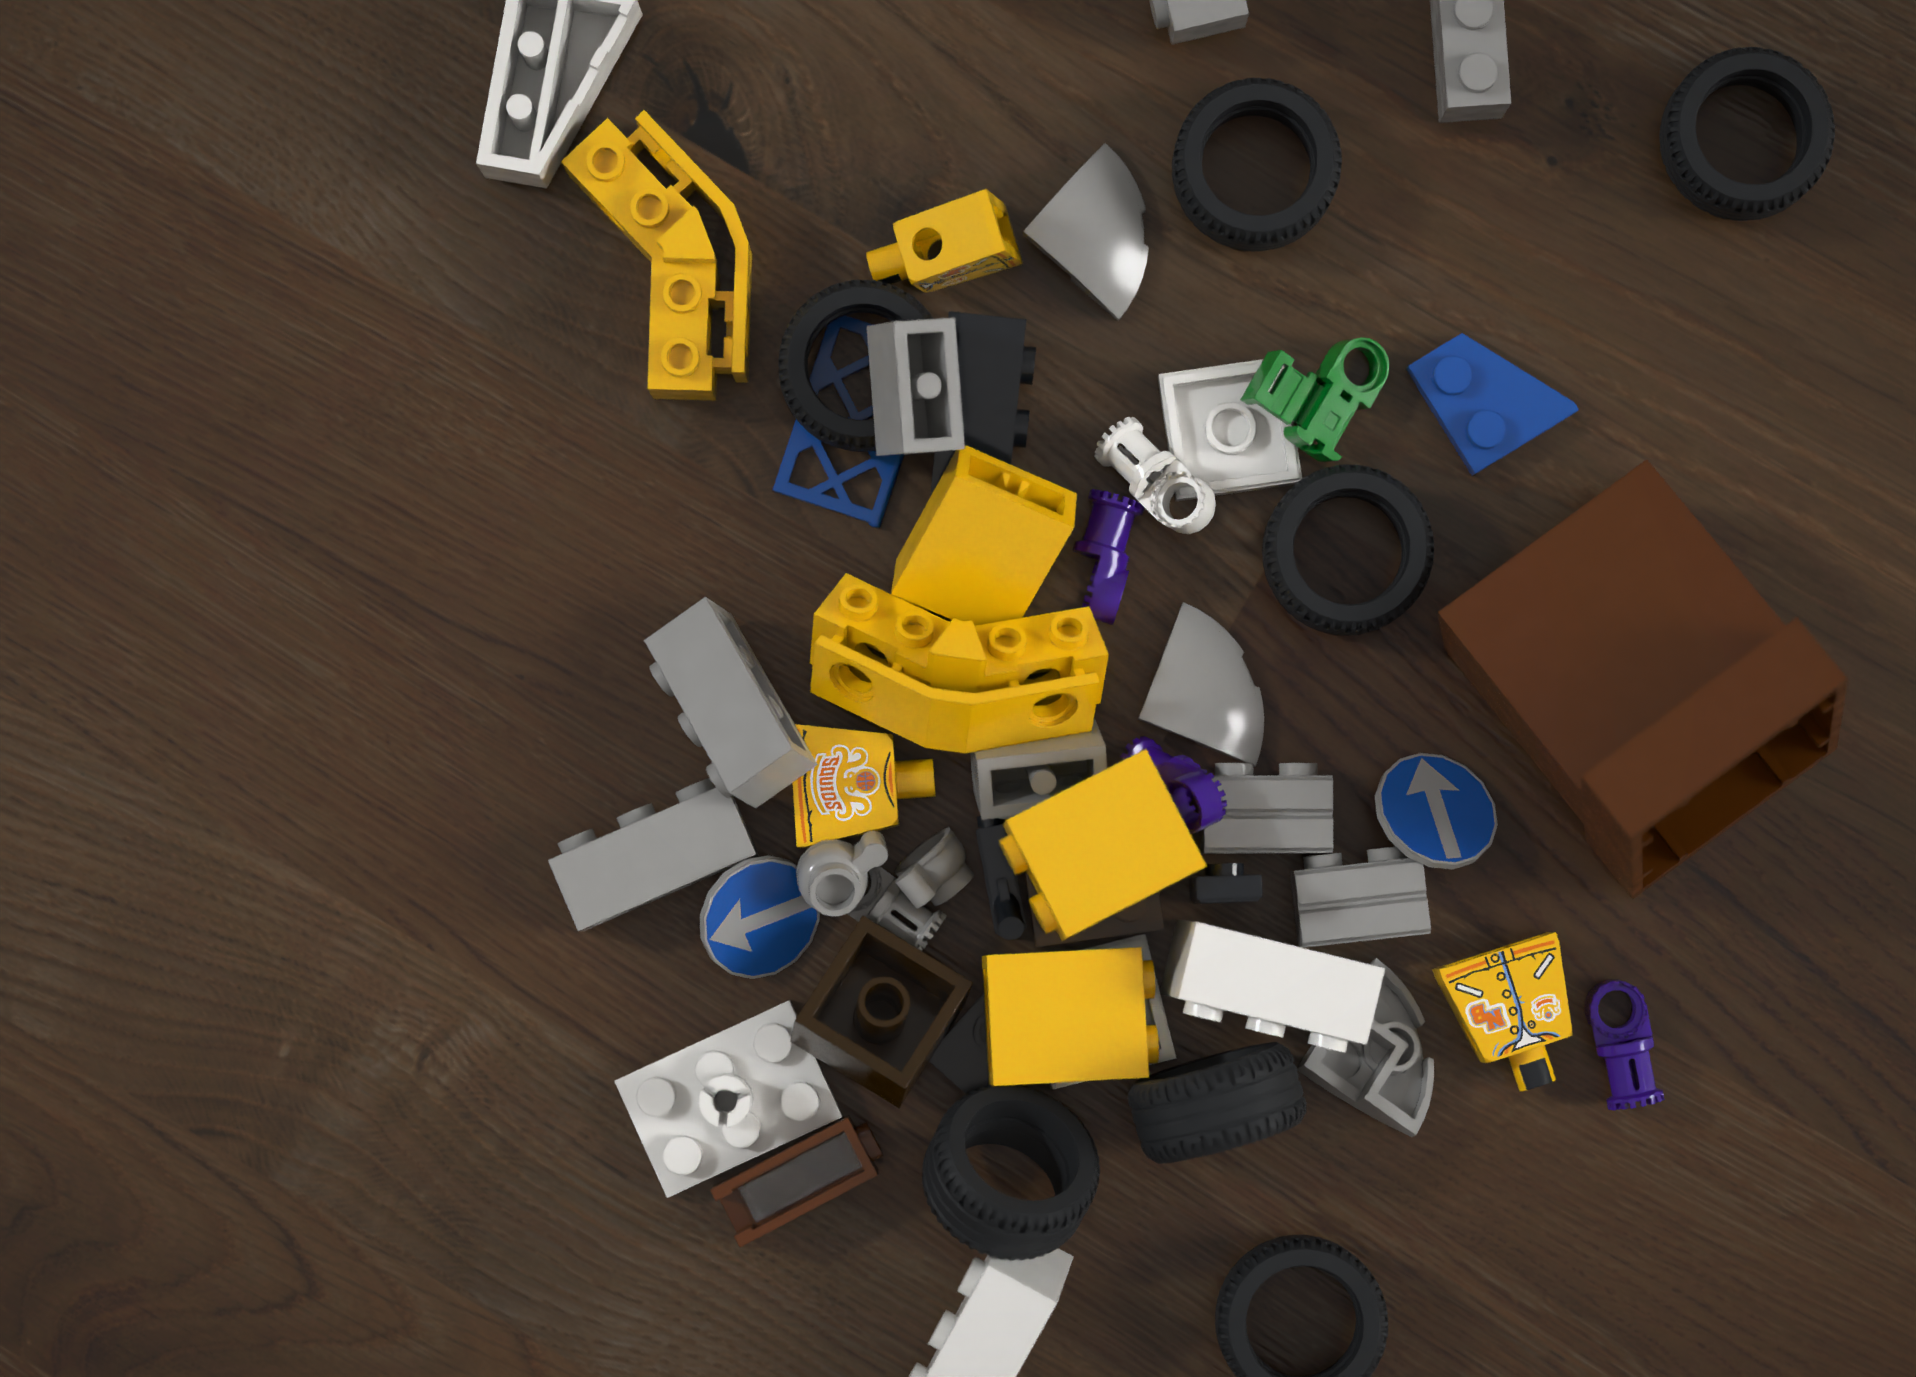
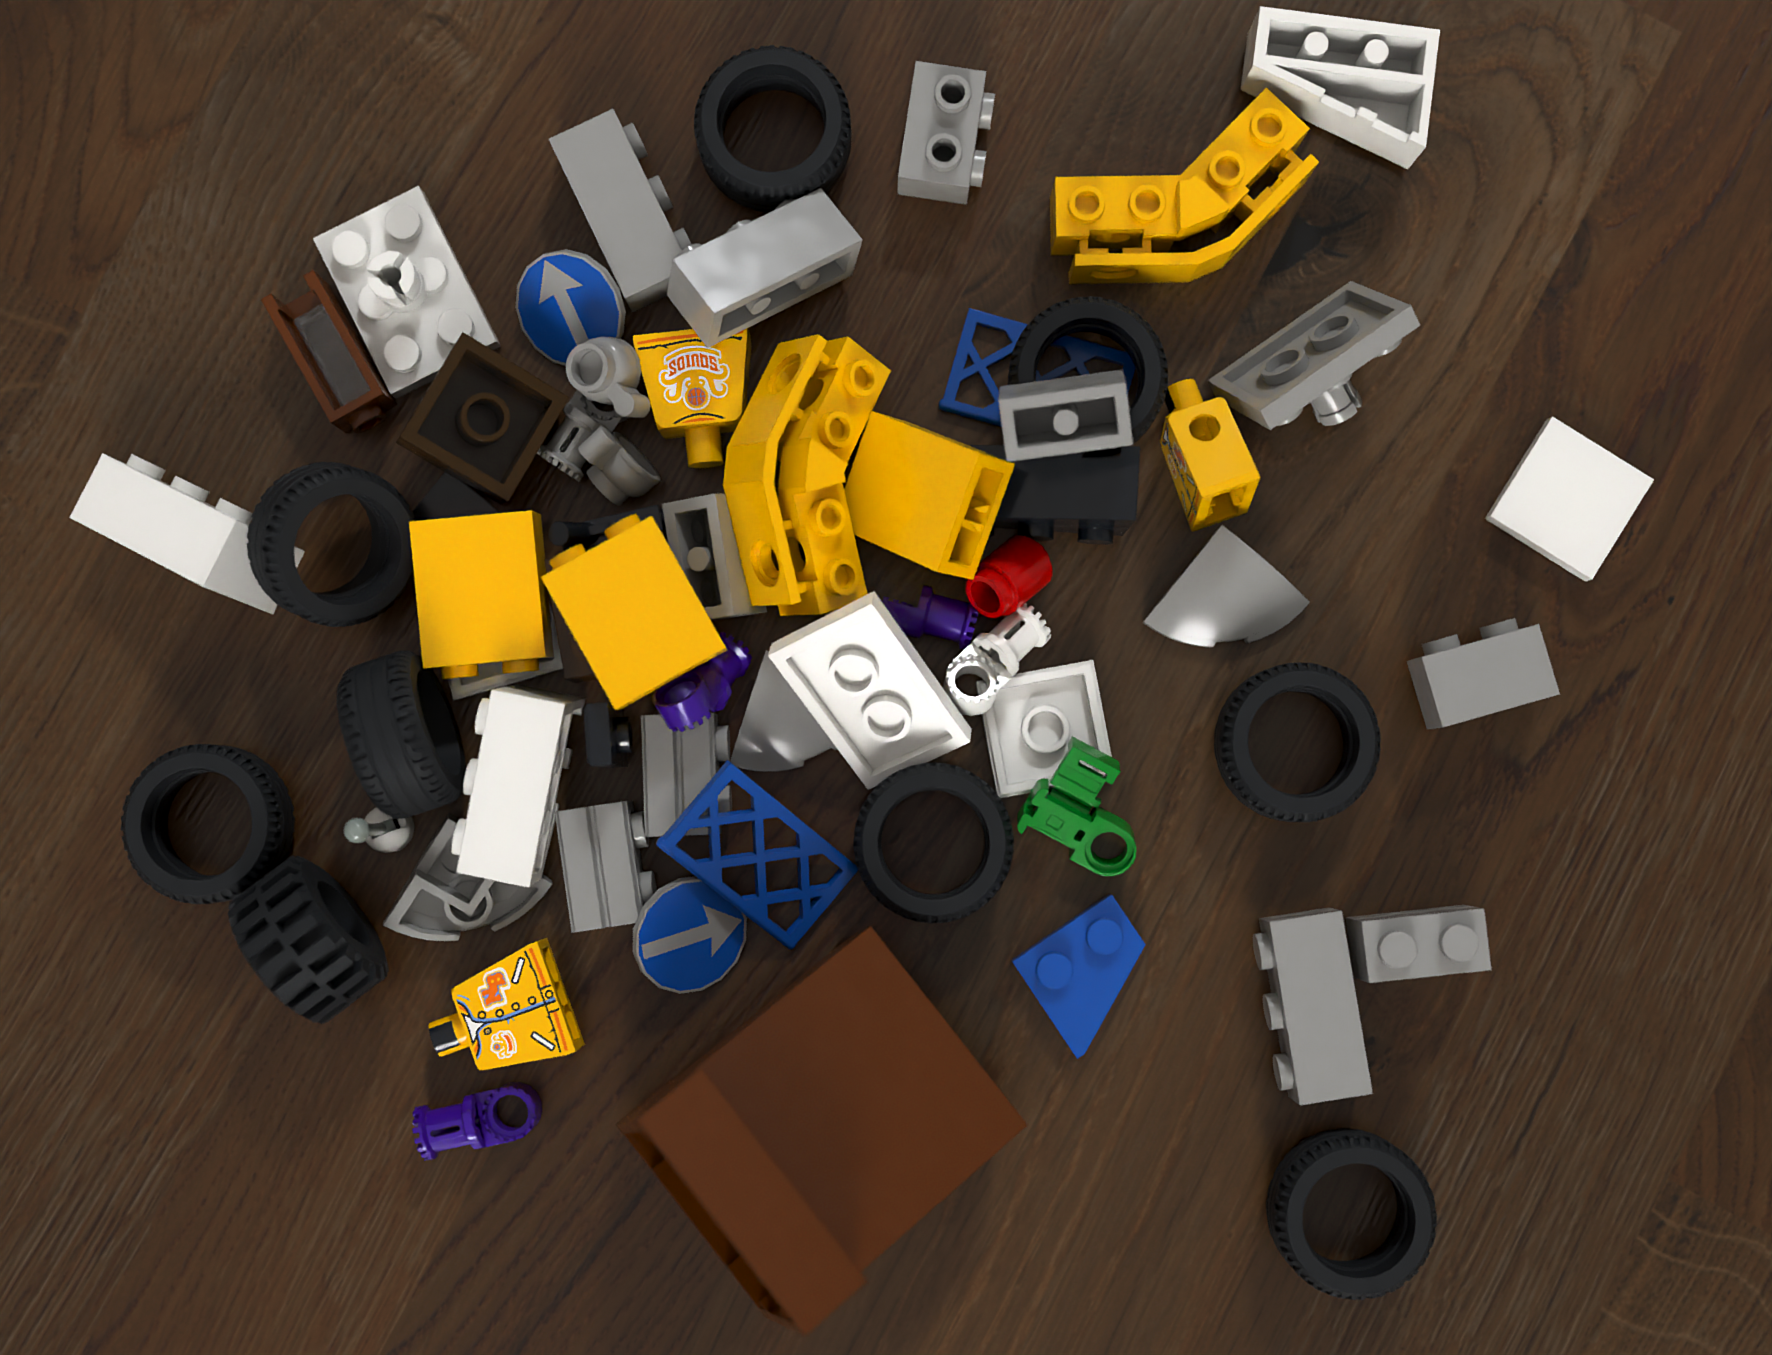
camera: 90 degrees right, 0 degrees up
(520, 648) = (763, 71): none -> black tyre
(584, 507) = (942, 133): none -> light grey brick
(850, 125) = (1316, 359): none -> light grey plate
(1071, 456) = (1009, 577): none -> red brick
(1189, 606) = (870, 690): none -> white plate
(1306, 726) = (762, 807): none -> blue window
(1316, 1136) = (380, 831): none -> hinge
(1430, 1208) = (307, 939): none -> black tyre
(1531, 162) = (1312, 1006): none -> light grey brick

